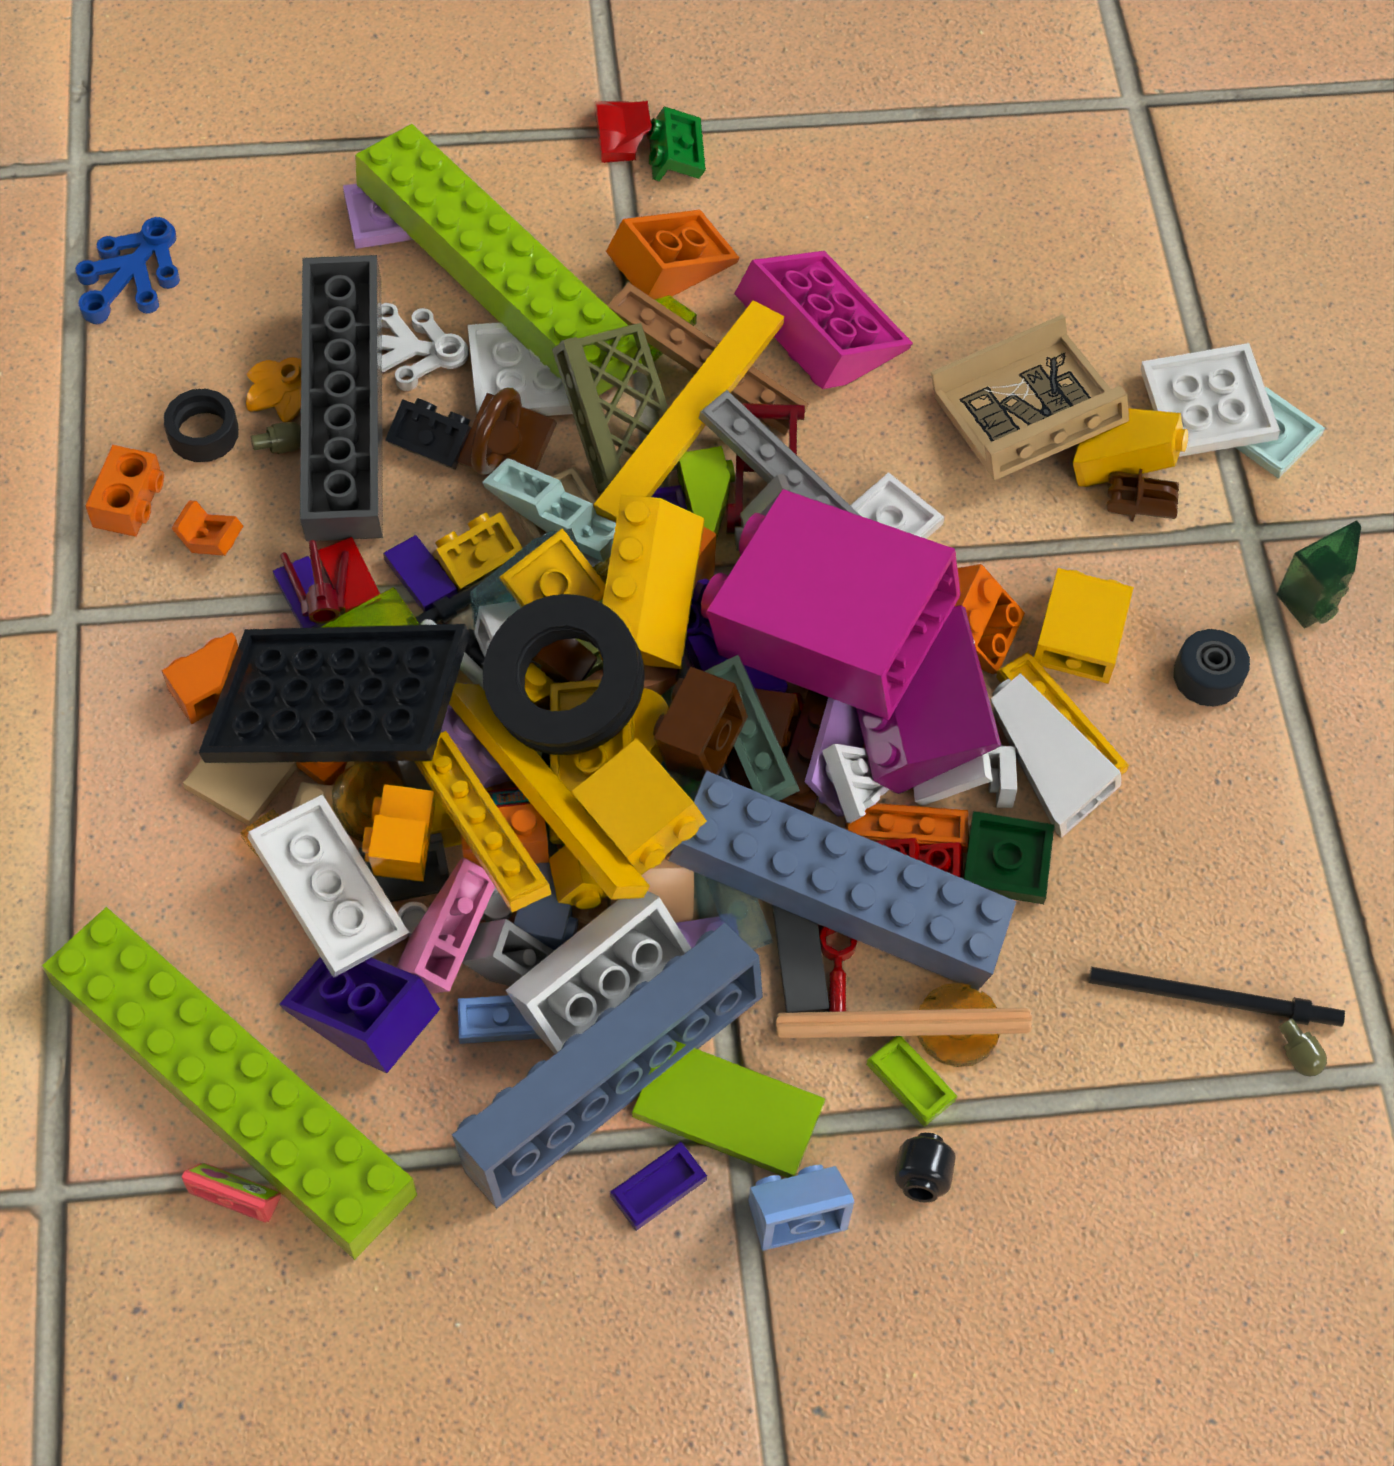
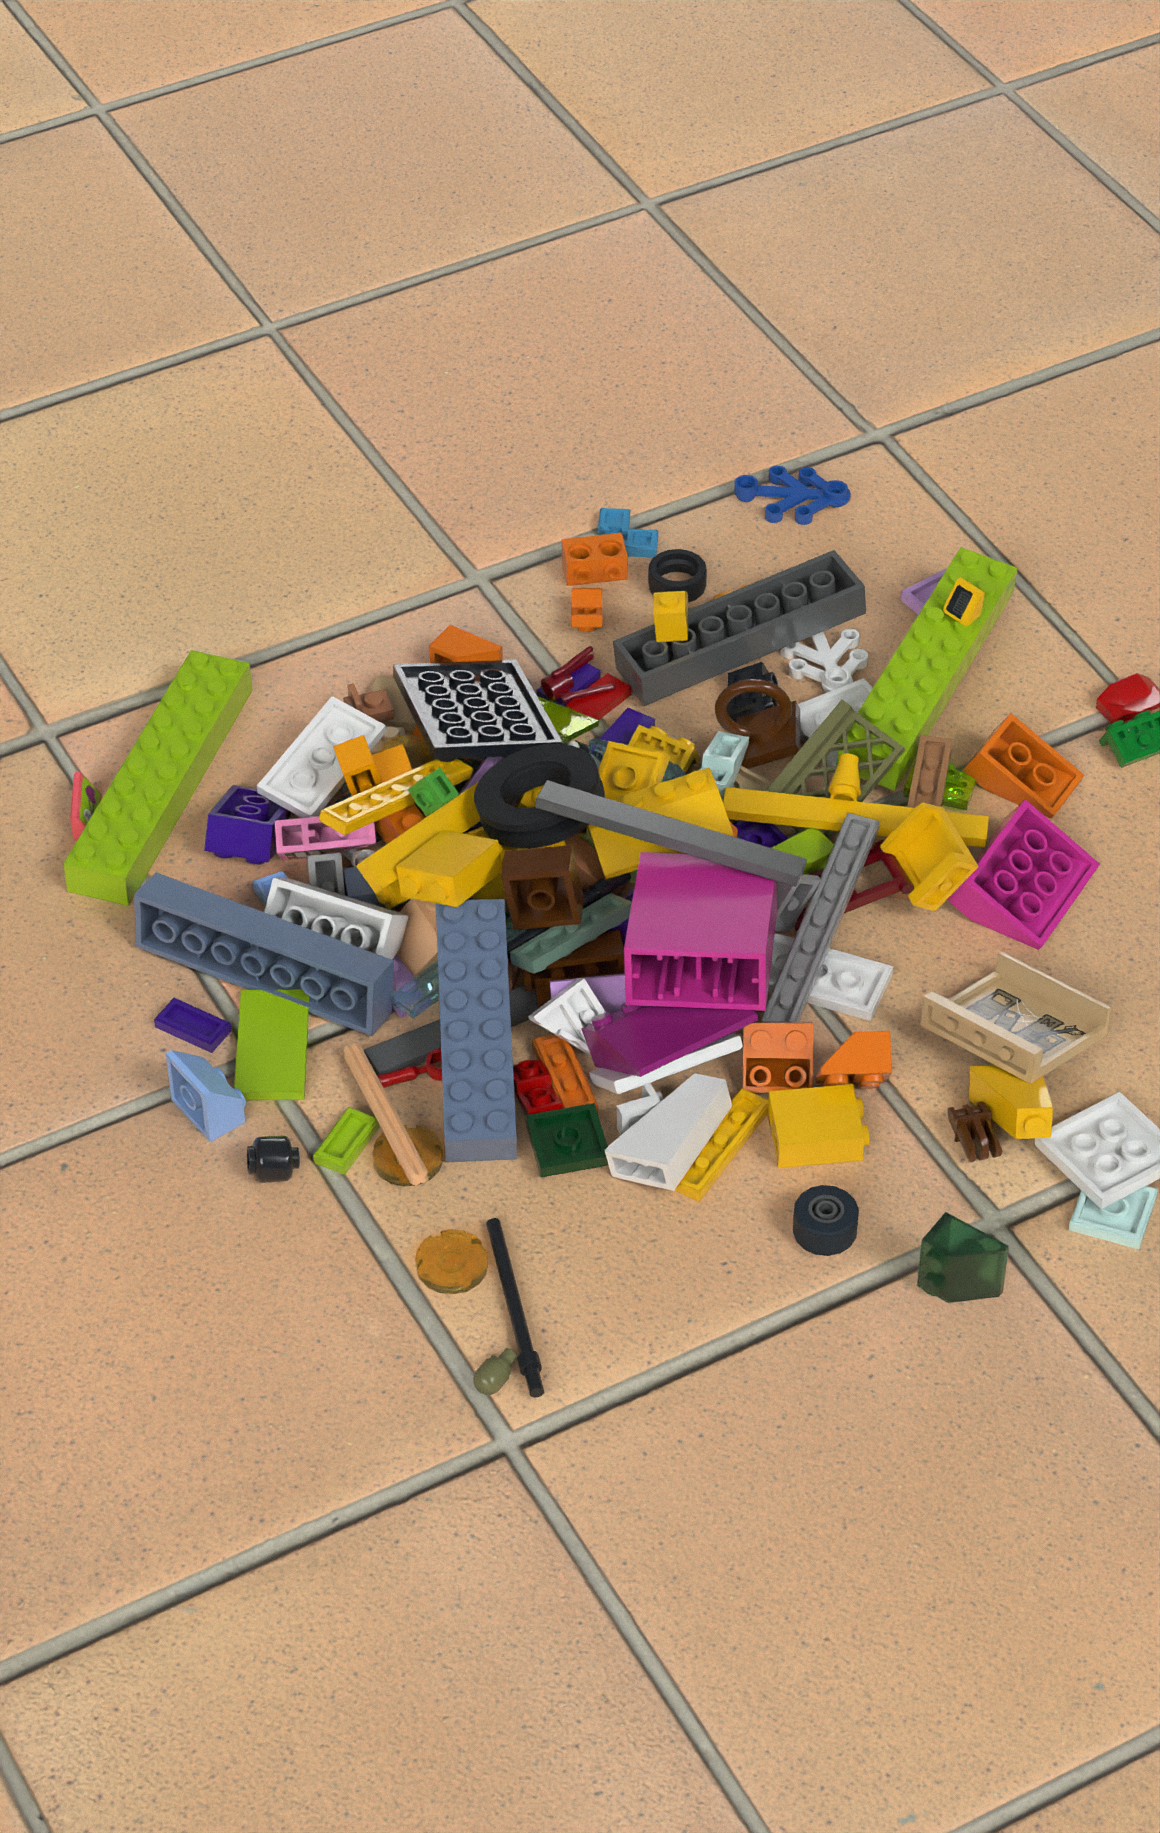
camera: 70 degrees right, 15 degrees down
(78, 455) = (637, 541): none -> dark azure tile
(241, 806) = (373, 704): none -> nougat bracket
(308, 441) = (671, 616): none -> yellow slope
(458, 182) = (964, 602): none -> slope
(504, 779) = (433, 791): none -> bright green bracket
(647, 393) = (846, 780): none -> yellow cone
(719, 569) = (671, 833): none -> dark grey tile
(796, 368) = (930, 855): none -> yellow panel
(1032, 549) = (861, 1060): none -> orange slope
(1129, 1036) = (451, 1262): none -> clear yellow tile

